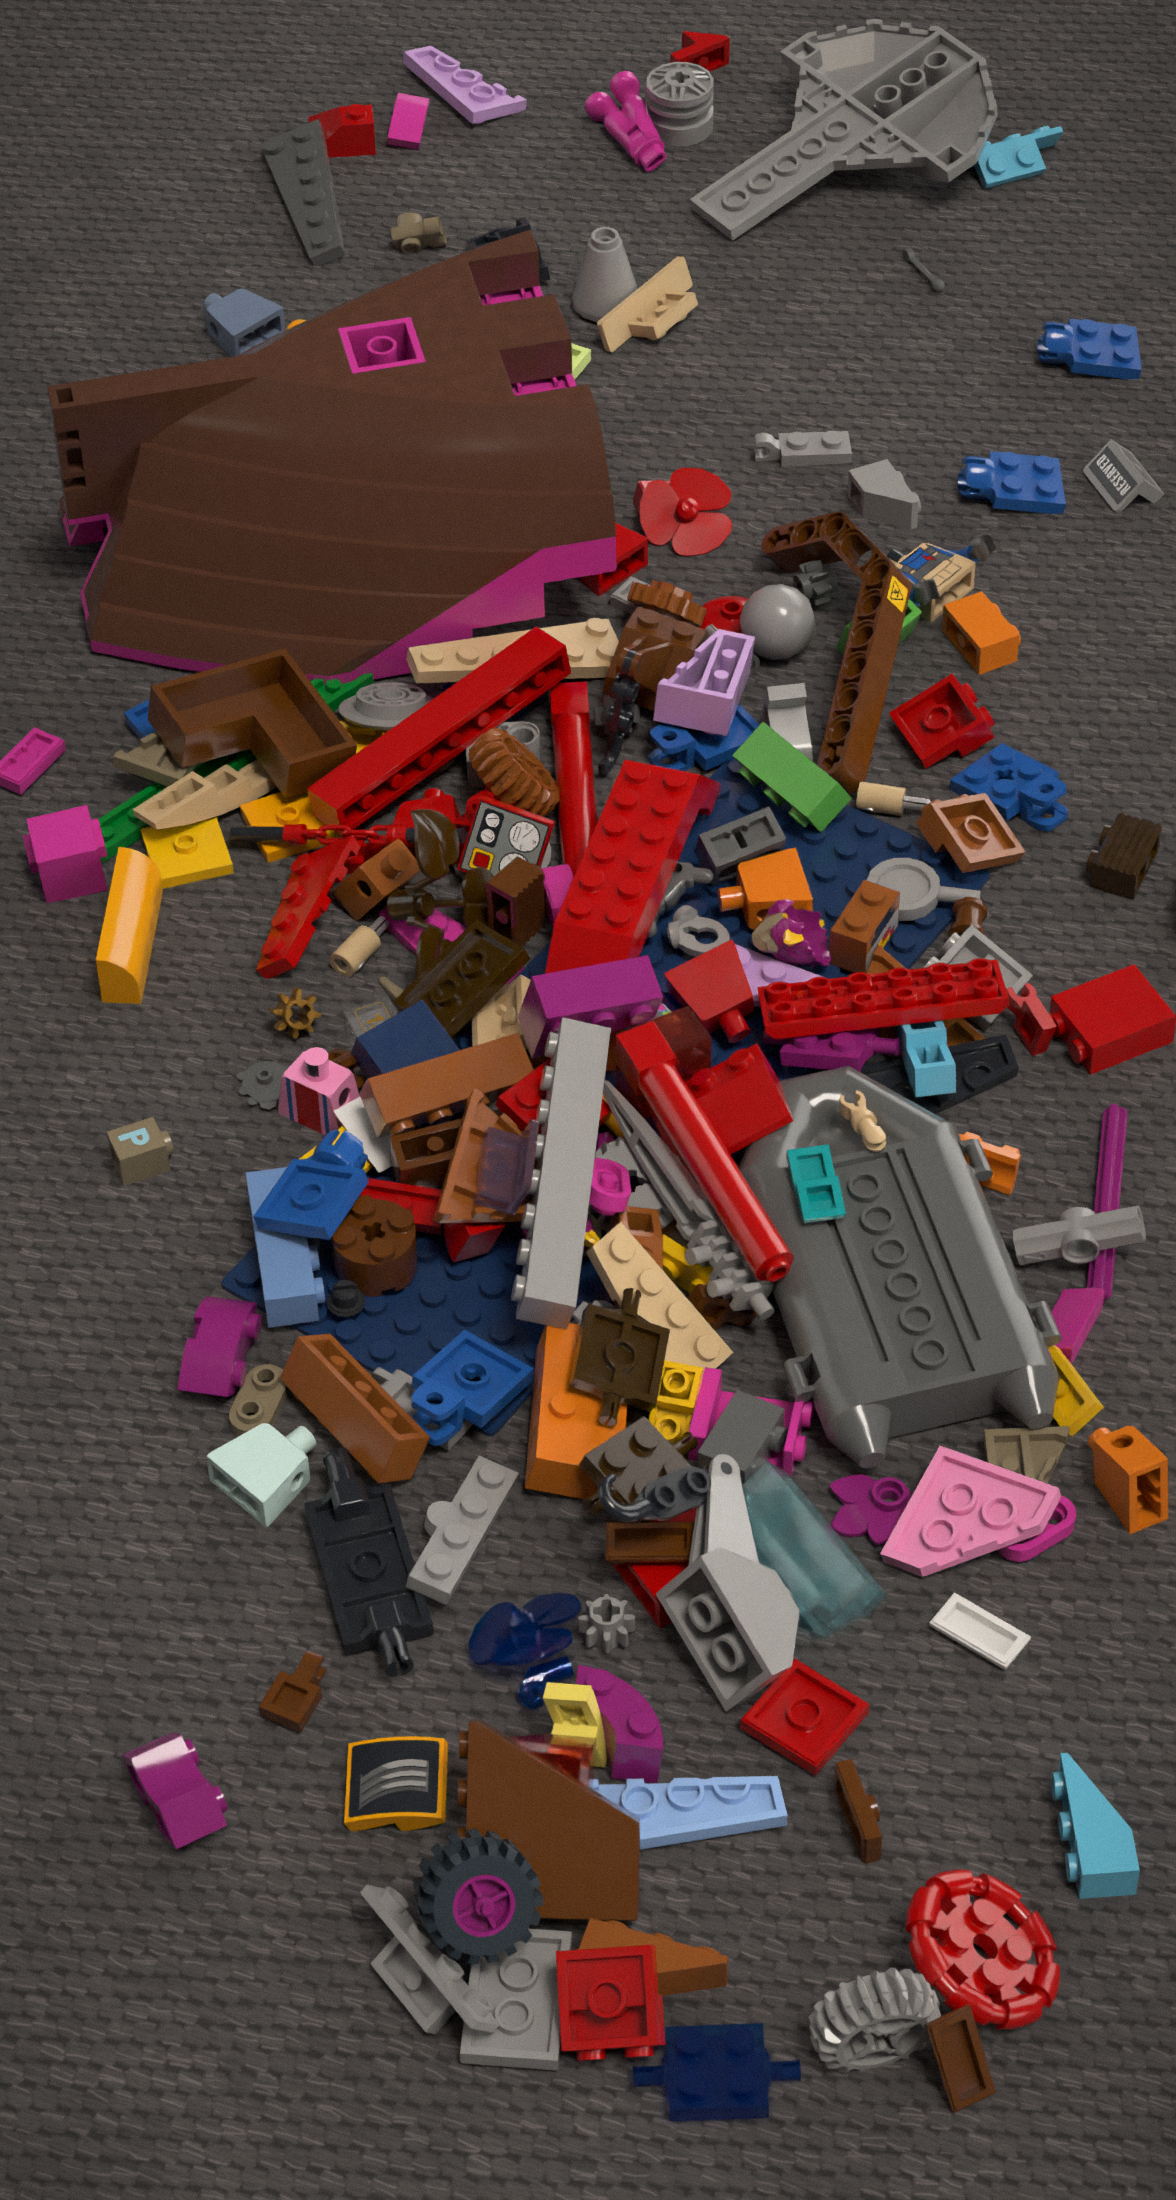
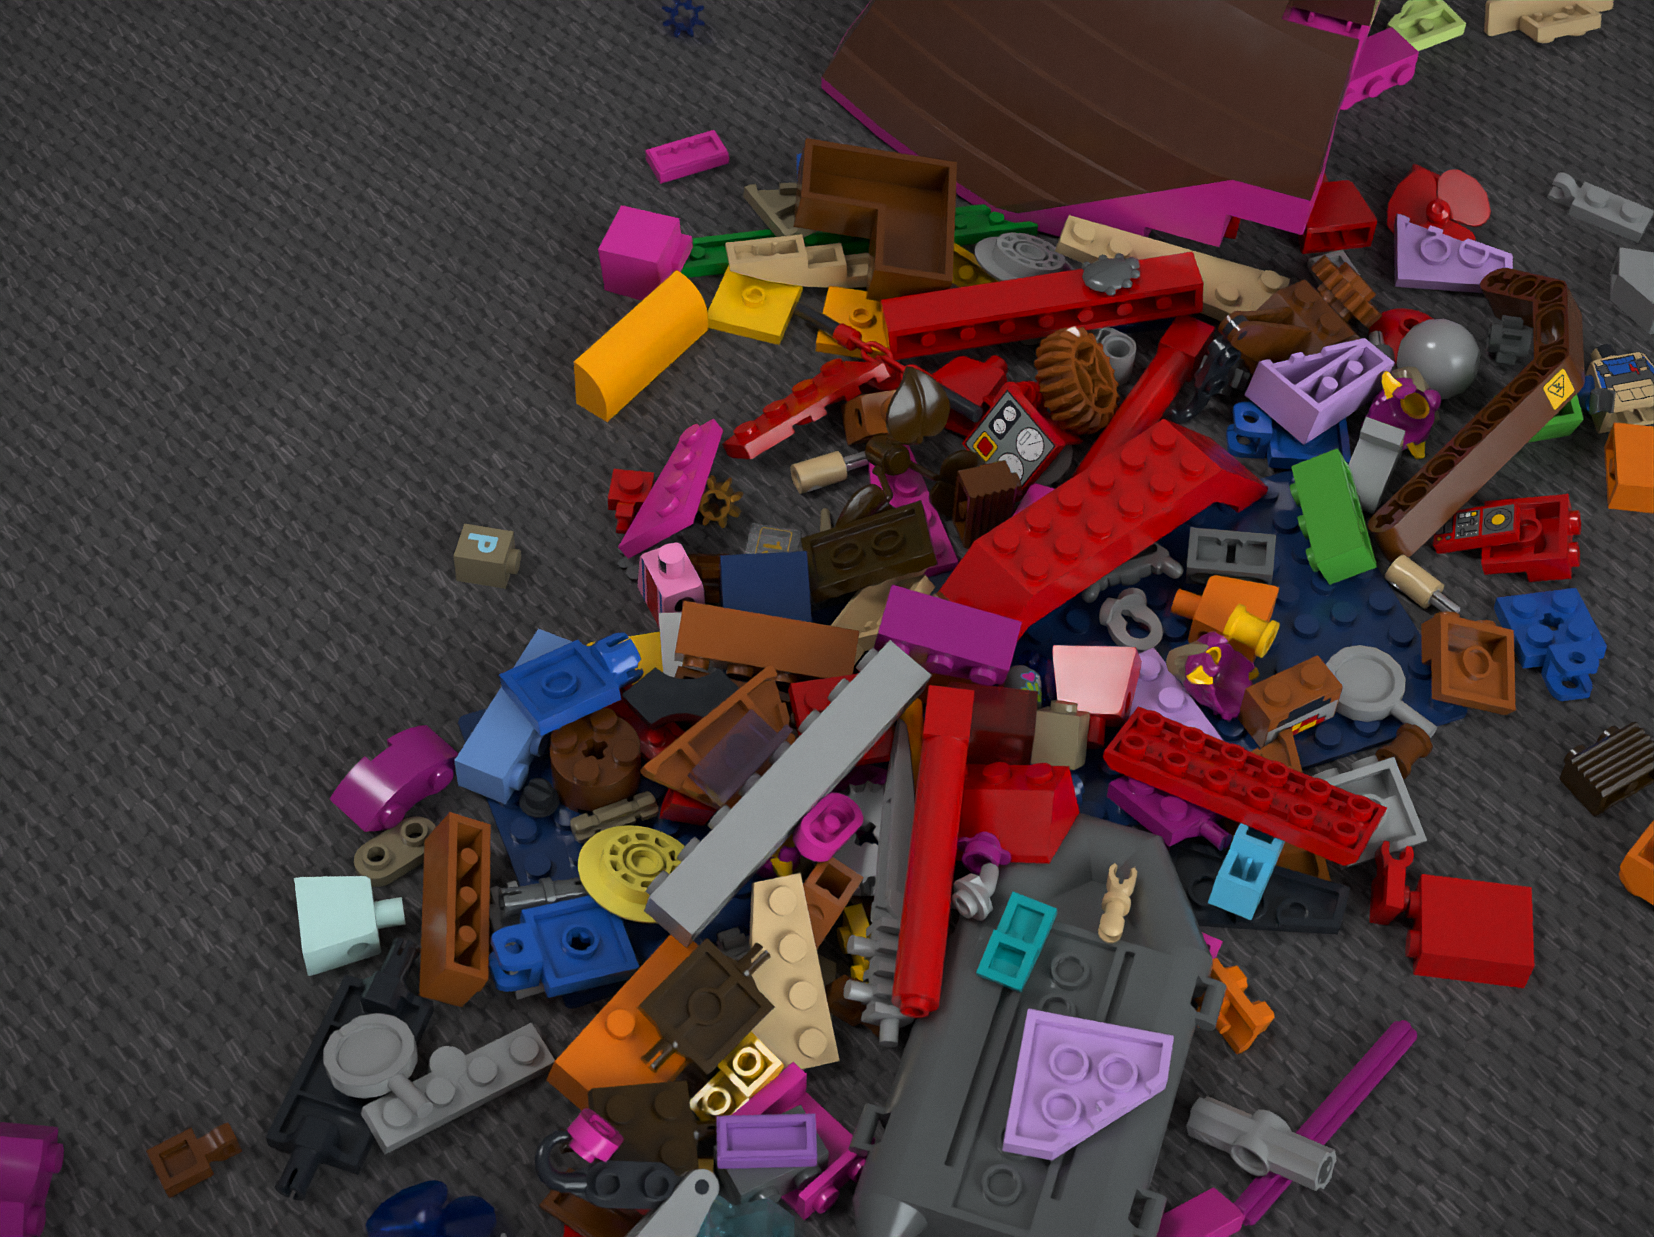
camera: 30 degrees right, 5 degrees up
(214, 1046) = (628, 494): none -> red plate
(258, 1020) = (677, 491): none -> dark pink wing
(390, 1539) = (373, 1058): none -> light grey piece
(402, 1164) = (666, 699): none -> black tile
(412, 1359) = (545, 892): none -> dark grey pin
(417, 1280) = (613, 815): none -> dark tan axle
(471, 1306) = (637, 857): none -> light yellow wheel
(486, 673) = (1110, 273): none -> dark grey piece
(630, 1474) = (593, 1136): none -> dark pink plate
(715, 549) = (1439, 262): none -> lavender wing
(723, 1030) = (1061, 735): none -> dark tan brick
(735, 1423) = (766, 1141): none -> medium lavender tile
(741, 1139) = (981, 850): none -> magenta plate
(759, 1168) = (974, 892): none -> light grey plate
(778, 665) = (1407, 405): none -> hair
(804, 885) = (1251, 630): none -> yellow bush
(902, 733) = (1479, 528): none -> tile
(934, 1249) = (1079, 1080): none -> lavender plate

